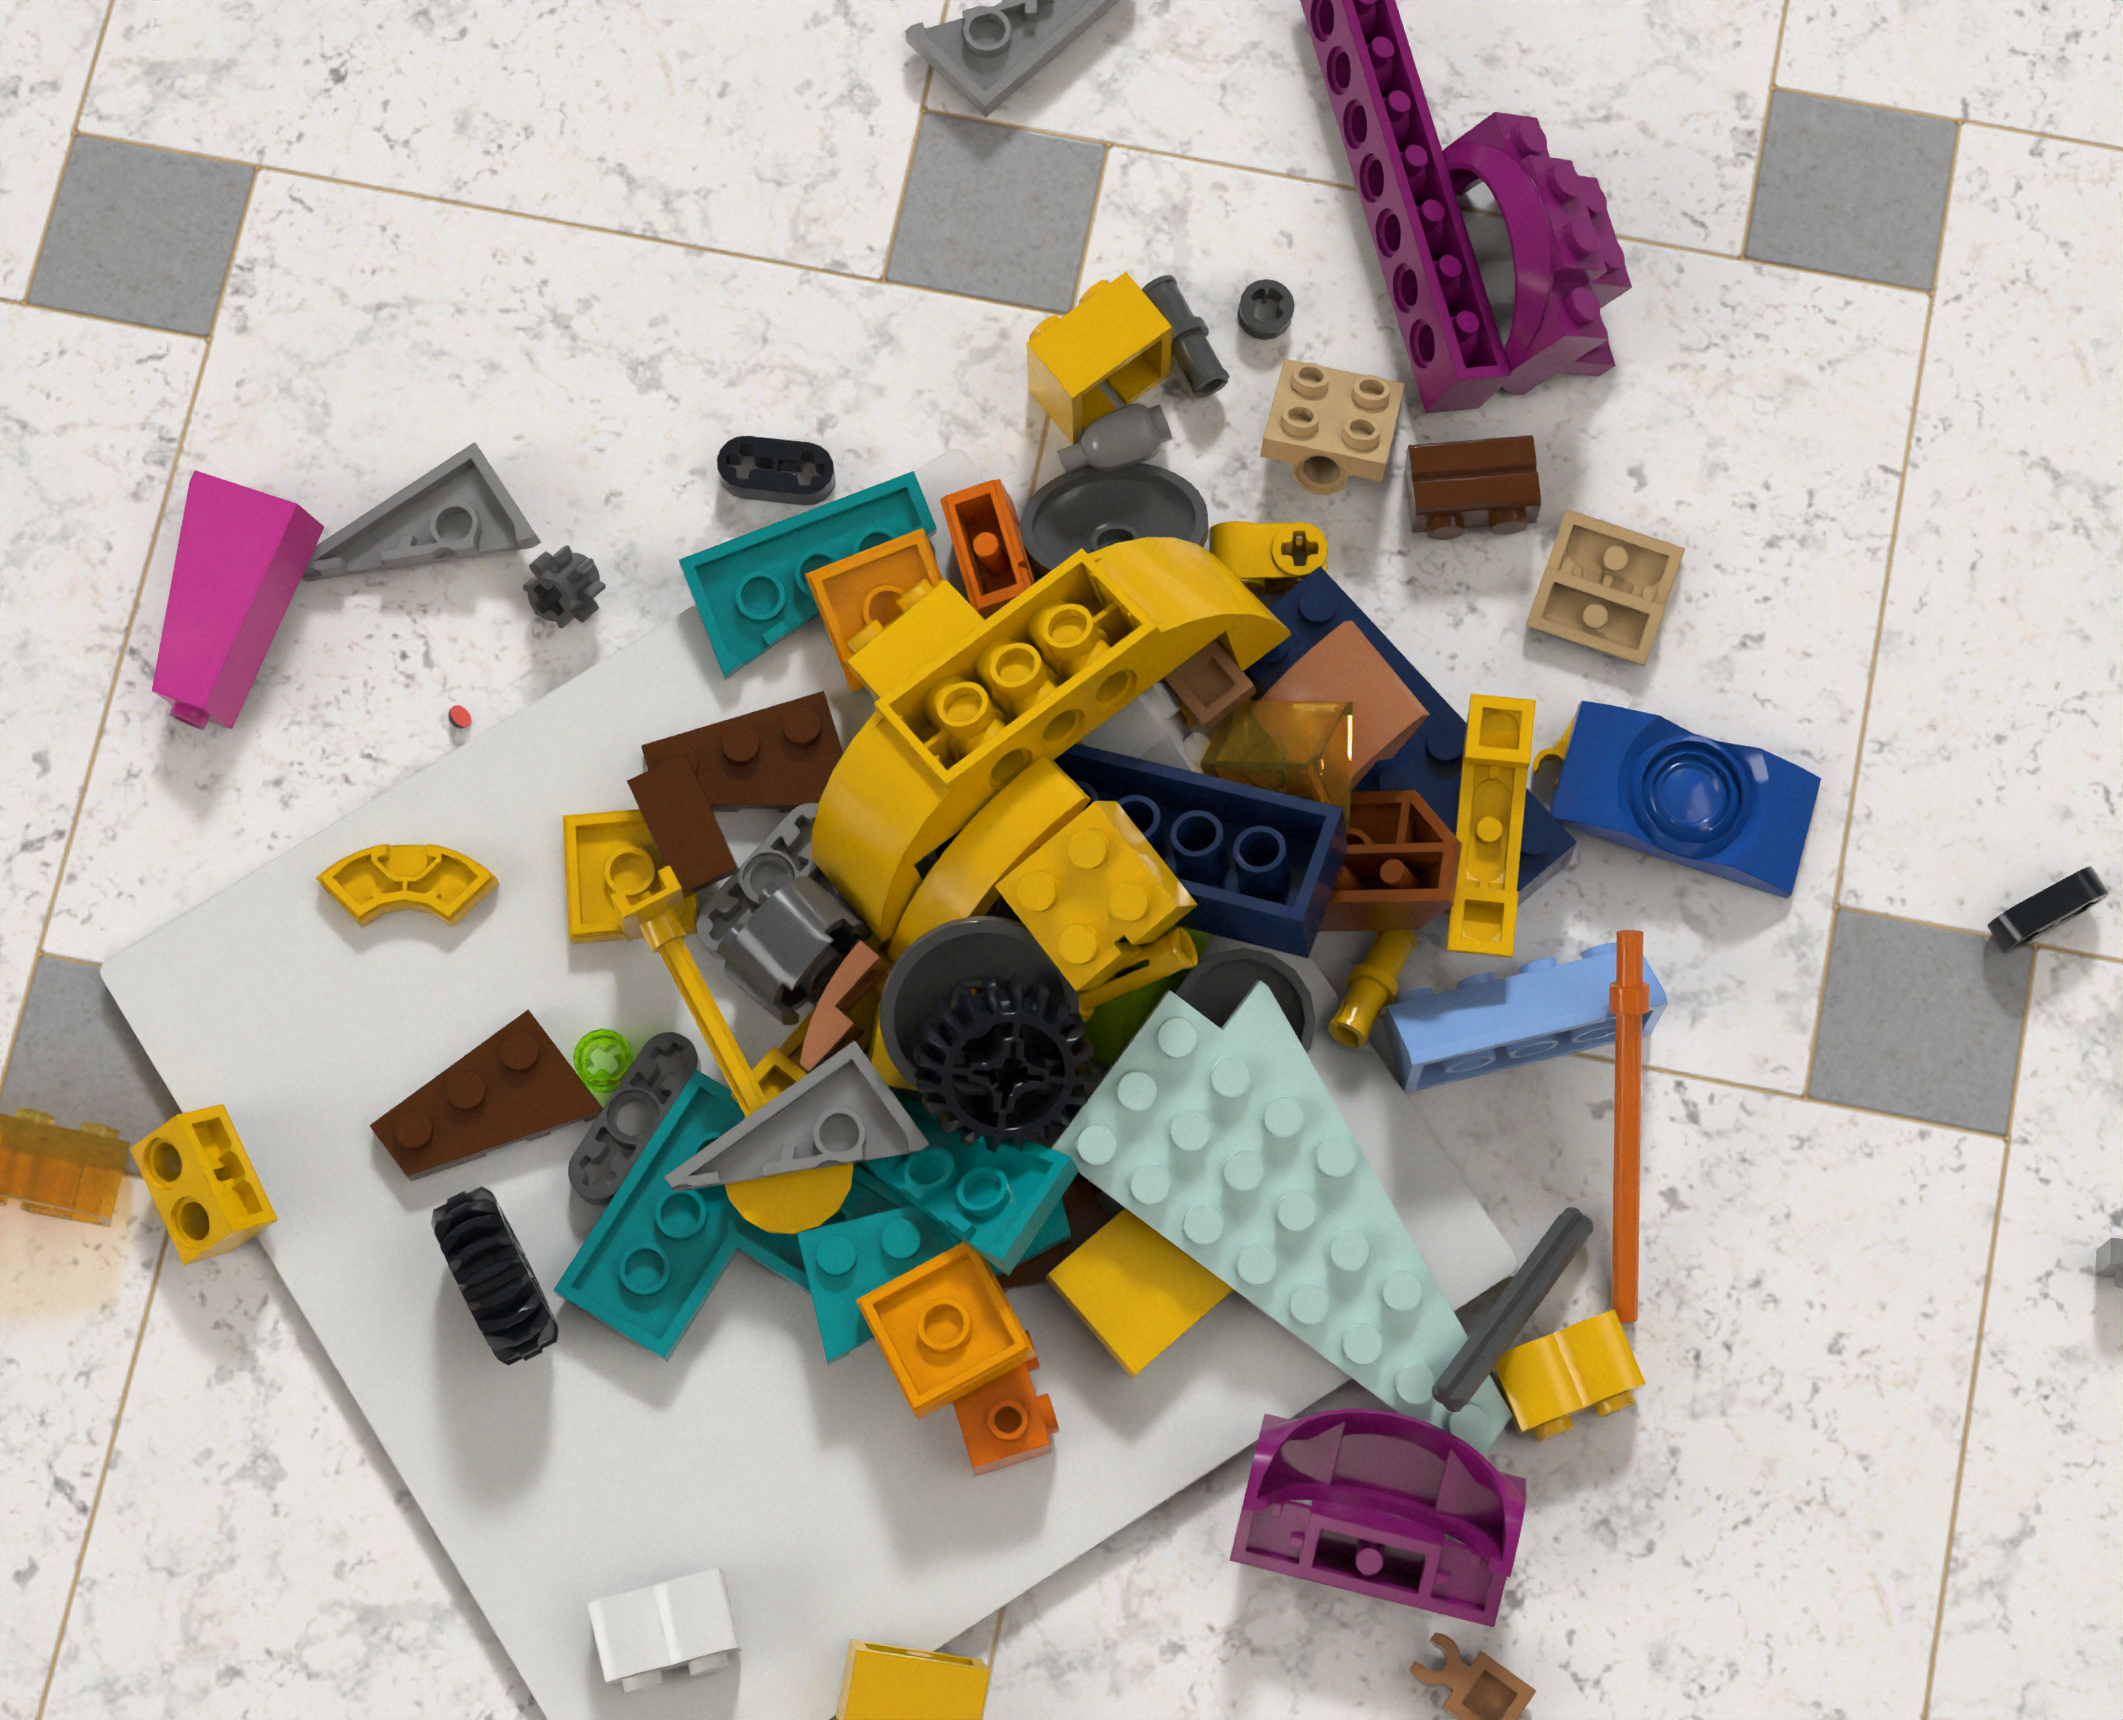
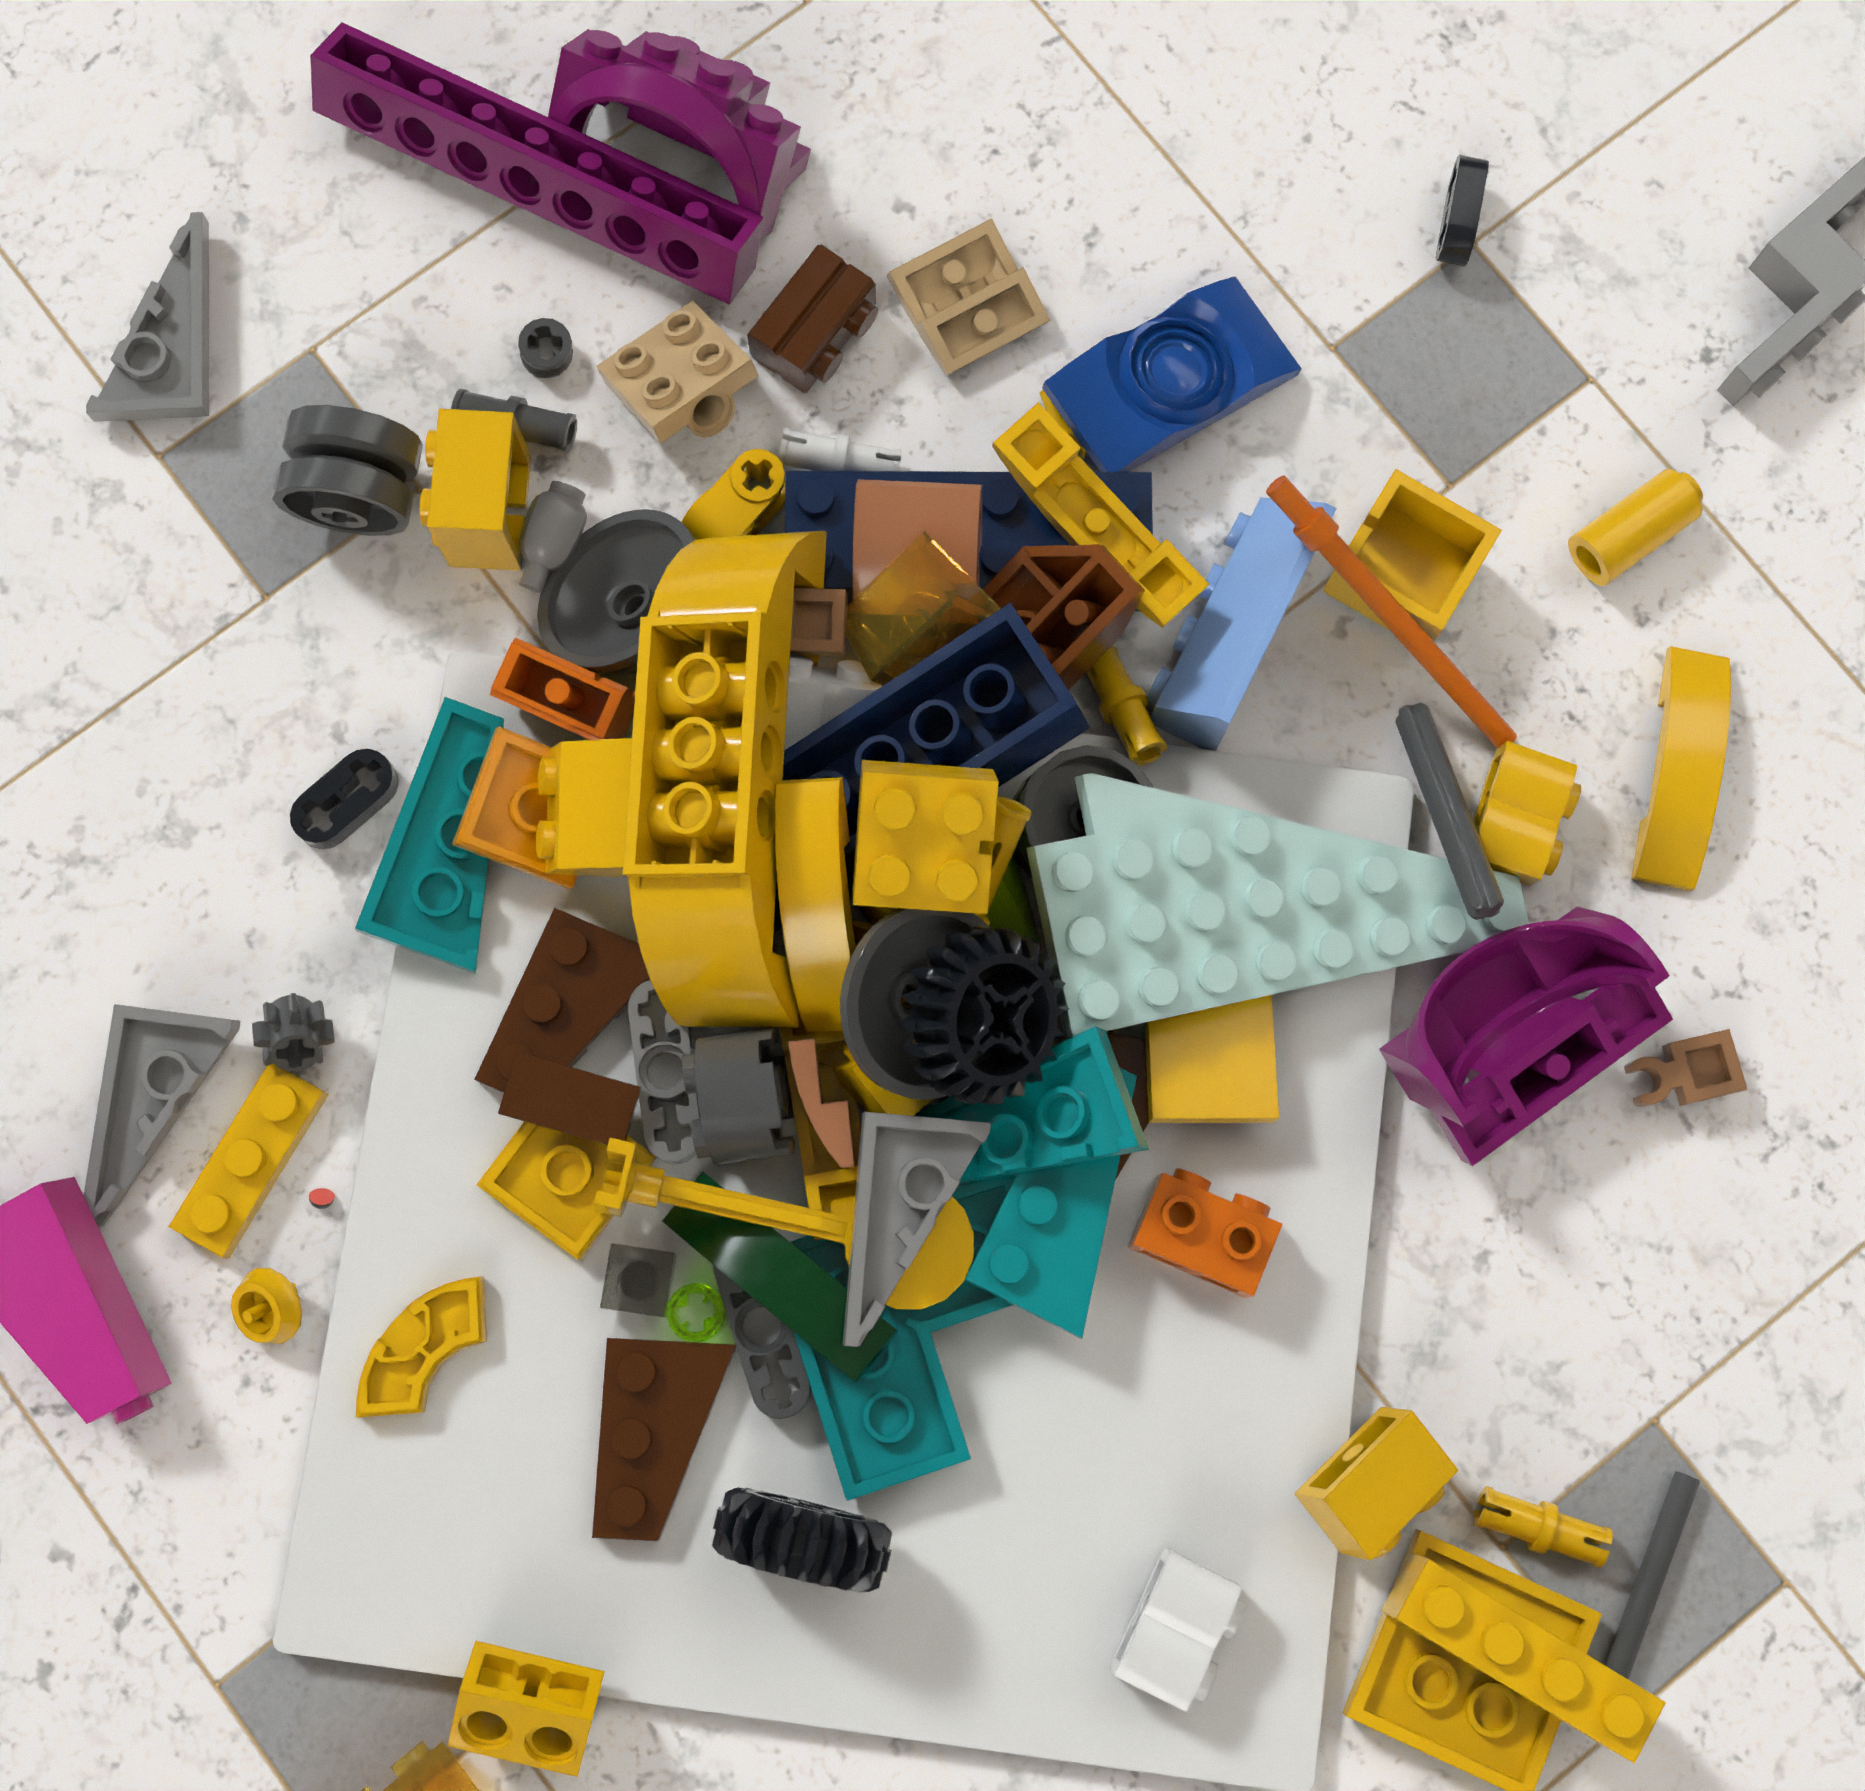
camera: 55 degrees left, 5 degrees up
(344, 746) = (266, 1307): none -> yellow hat
(442, 640) = (248, 1161): none -> yellow plate
(591, 994) = (638, 1280): none -> clear smoke plate
(677, 1100) = (781, 1282): none -> dark green slope
(945, 1328) = (1139, 1229): light orange plate -> none
(1026, 251) = (347, 470): none -> dark grey wheel
(1378, 597) = (833, 454): none -> white pin
(1705, 1115) = (1419, 550): none -> yellow piece
(1732, 1480) = (1686, 769): none -> yellow slope
(1905, 1273) = (1636, 526): none -> yellow brick

